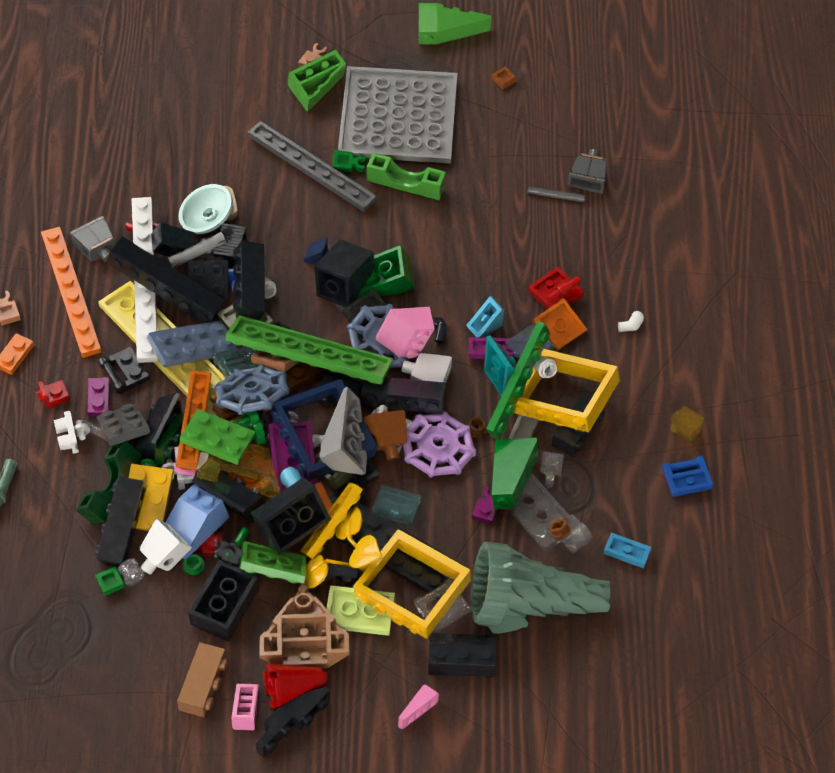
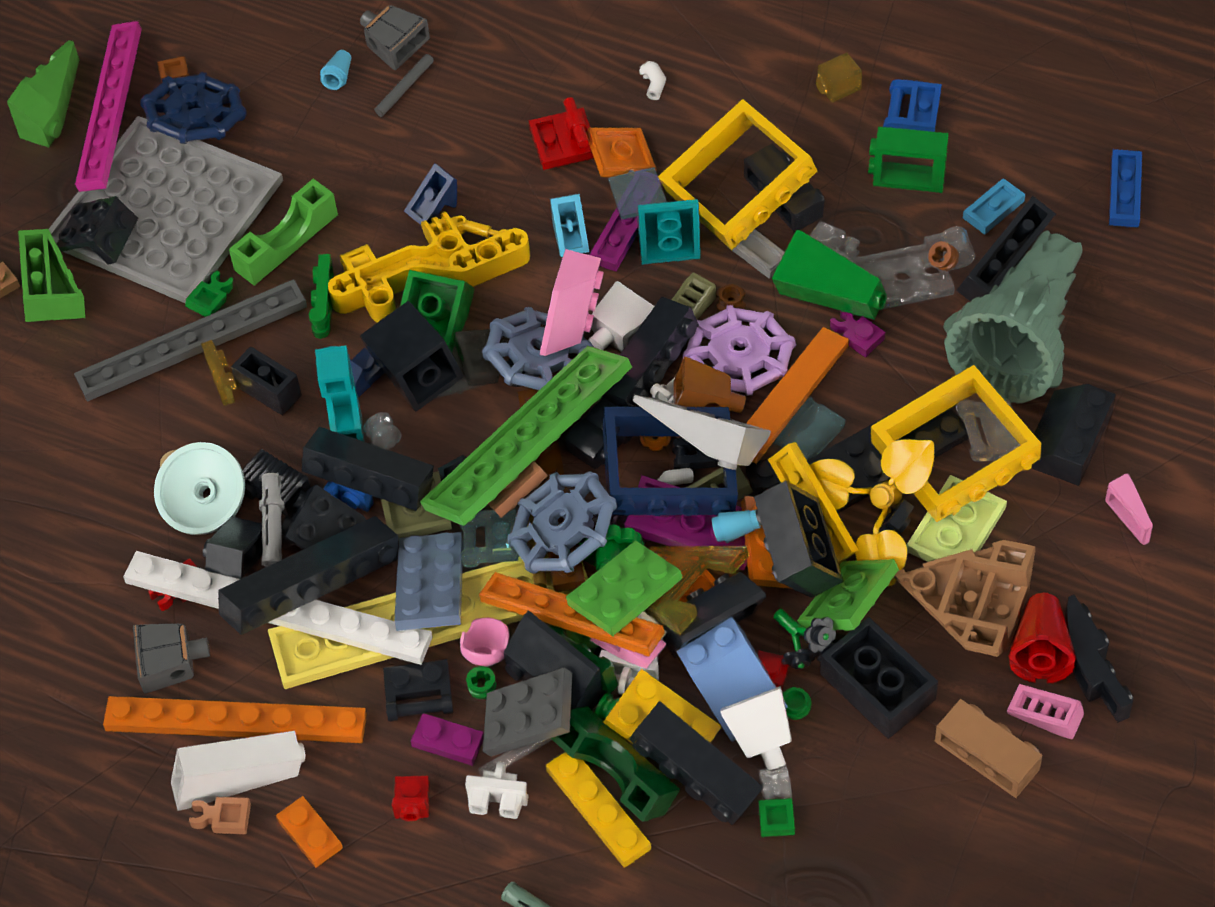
camera: 60 degrees left, 0 degrees up
(34, 300) = (234, 767): none -> white slope
(88, 481) = (599, 808): none -> yellow plate
(145, 394) = (472, 682): none -> green bush
(163, 385) = (485, 641): none -> bright pink hair
(286, 231) = (339, 391): none -> teal arch
(289, 282) = (382, 431): none -> clear wheel
(293, 187) = (223, 381): none -> clear yellow plate
(295, 211) = (266, 380): none -> black brick
(360, 88) = (101, 226): none -> black bracket
(372, 215) = (320, 299): none -> green plate
(418, 483) = (798, 384): none -> orange tile
(428, 265) = (375, 281): none -> yellow beam
(440, 324) = (543, 284): black arm -> none
(455, 55) = (108, 107): none -> dark pink plate
(467, 399) = (699, 290): none -> olive slope
(472, 239) = (435, 191): none -> dark blue slope
(476, 109) = (193, 108): none -> dark blue plate
(518, 380) = (719, 218): green plate -> none
(546, 155) = (336, 71): none -> medium azure cone
(546, 367) = (696, 178): white cone -> none
(589, 565) = (1007, 249): none -> black brick
(632, 484) = (908, 144): none -> green window
(684, 625) = (1125, 188): none -> blue plate

